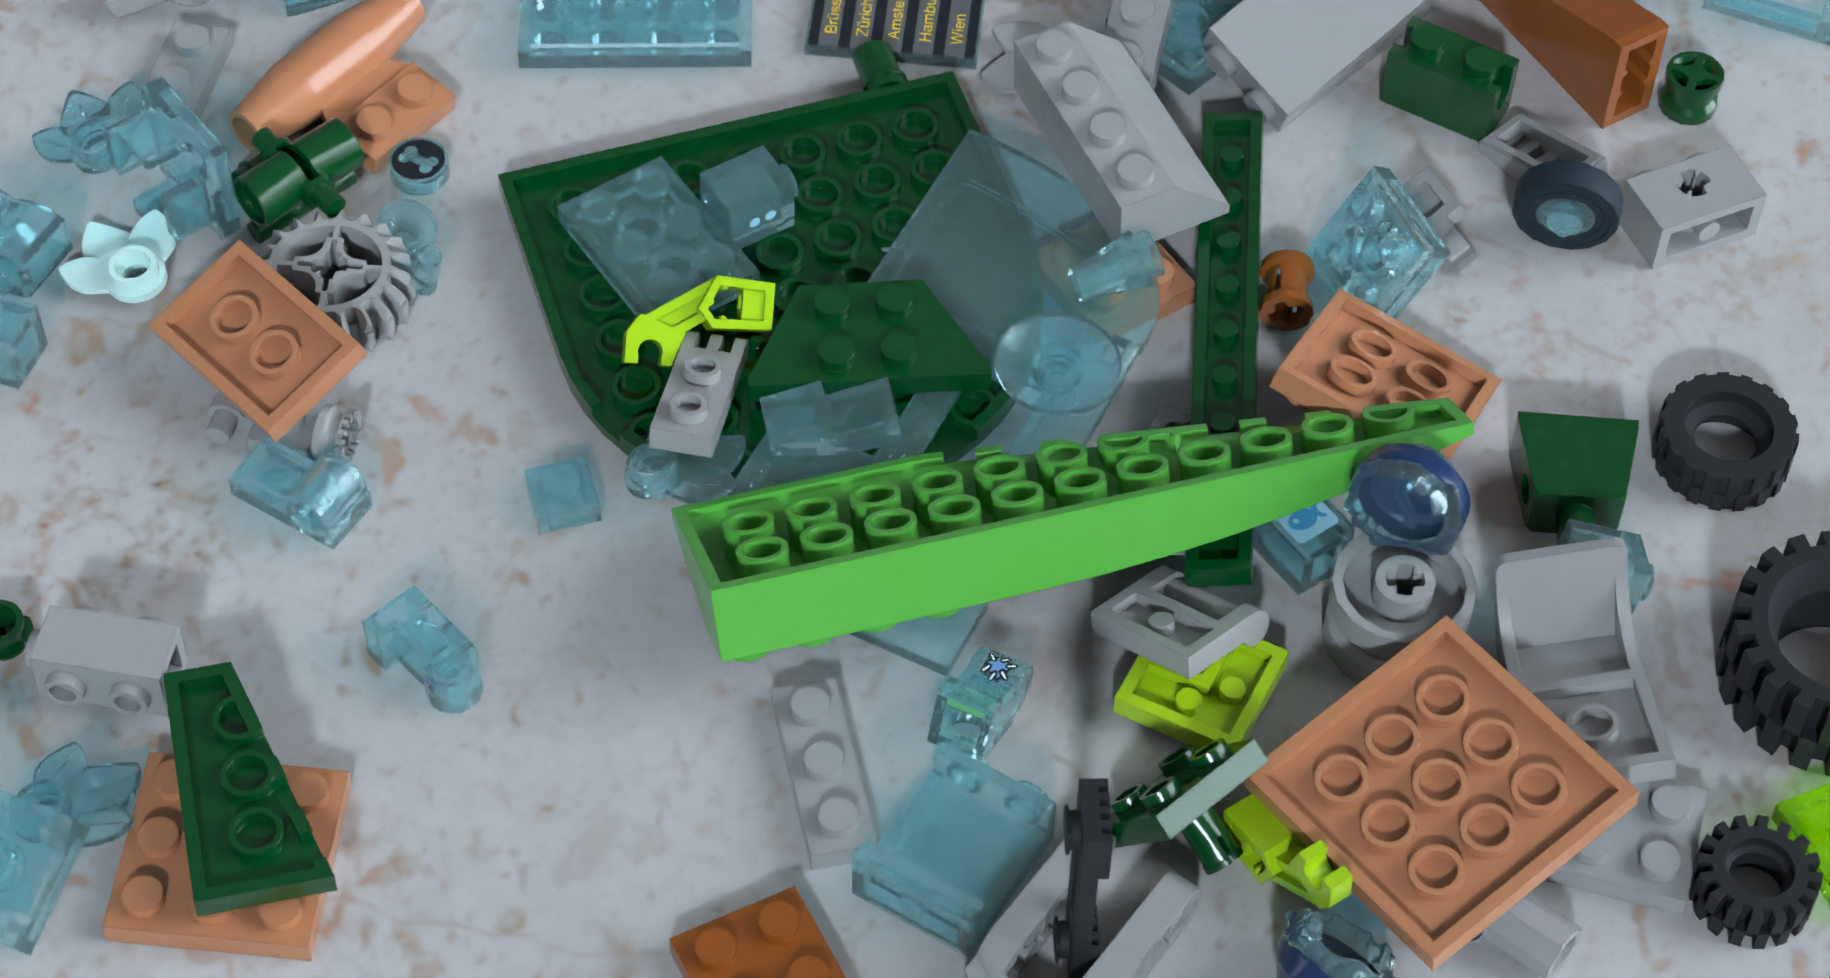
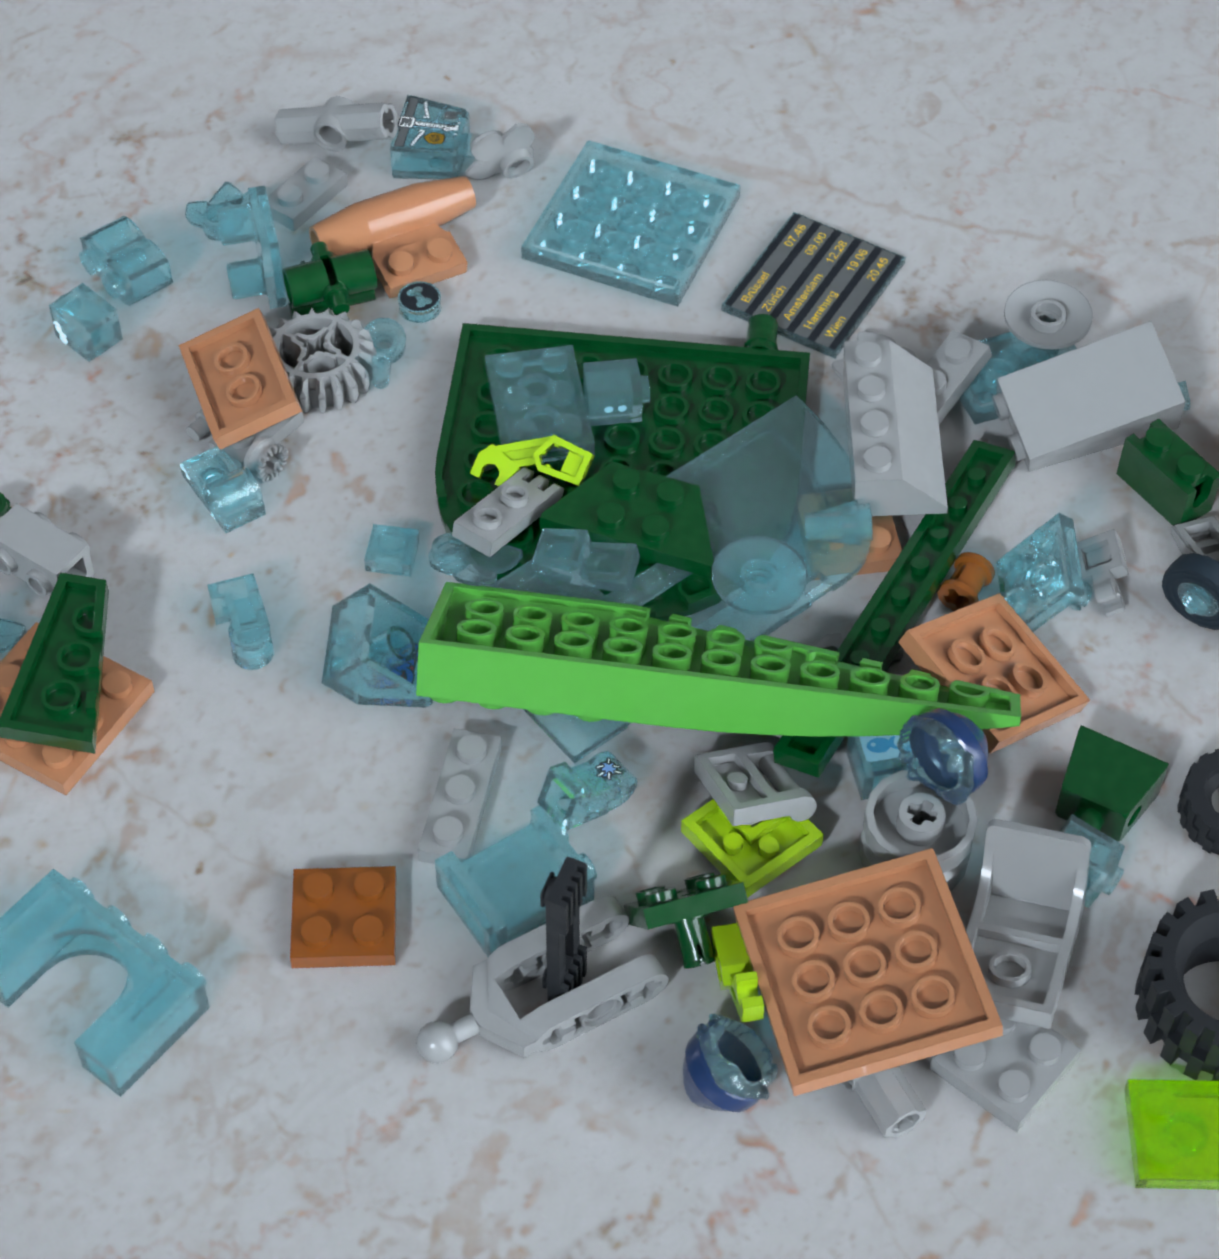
camera: 25 degrees right, 0 degrees up
(122, 262) = (196, 301): light aqua plate -> none
(626, 626) = (374, 650): none -> clear light blue slope
(1761, 849) = (1089, 1102): black tyre -> none

